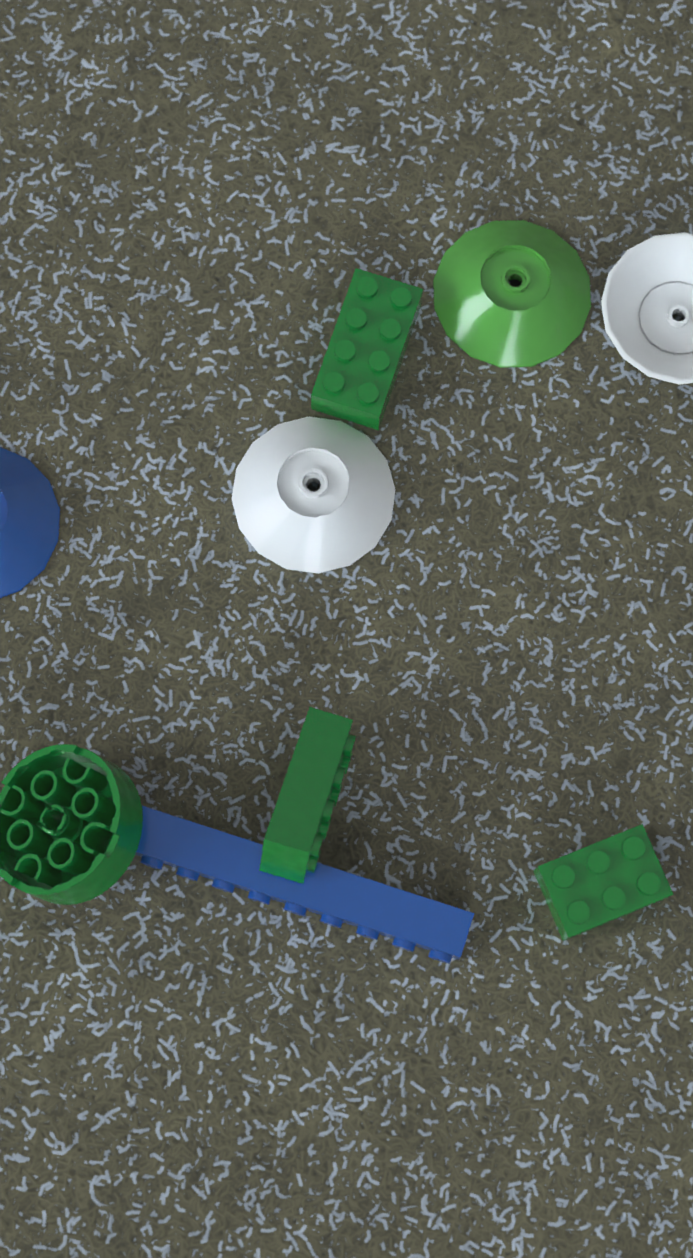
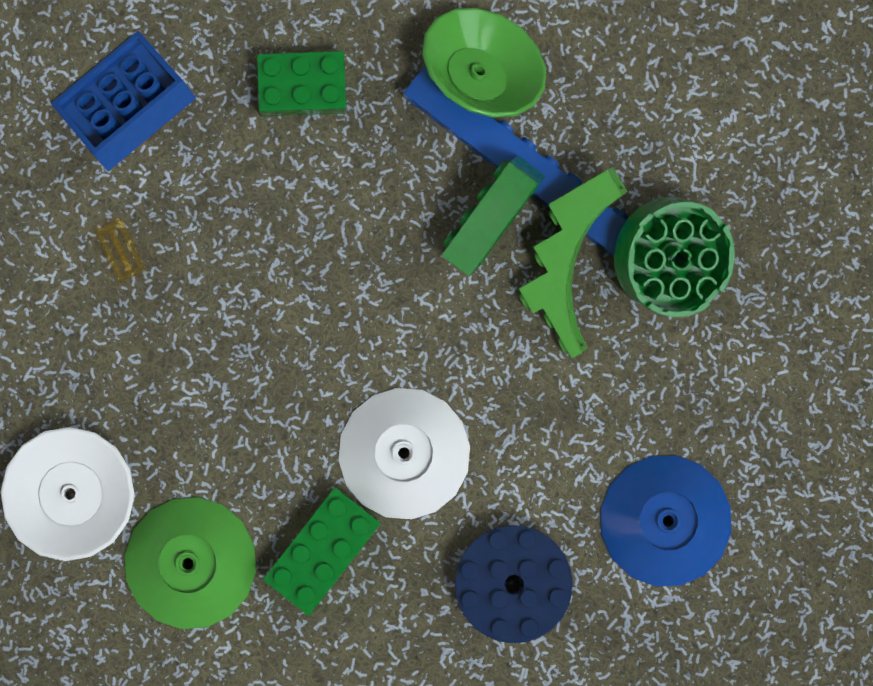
camera: 160 degrees left, 10 degrees up
(141, 353) = (518, 614): none -> dark blue brick
(212, 781) = (558, 254): none -> bright green arch
(383, 1014) = (484, 62): none -> bright green dish

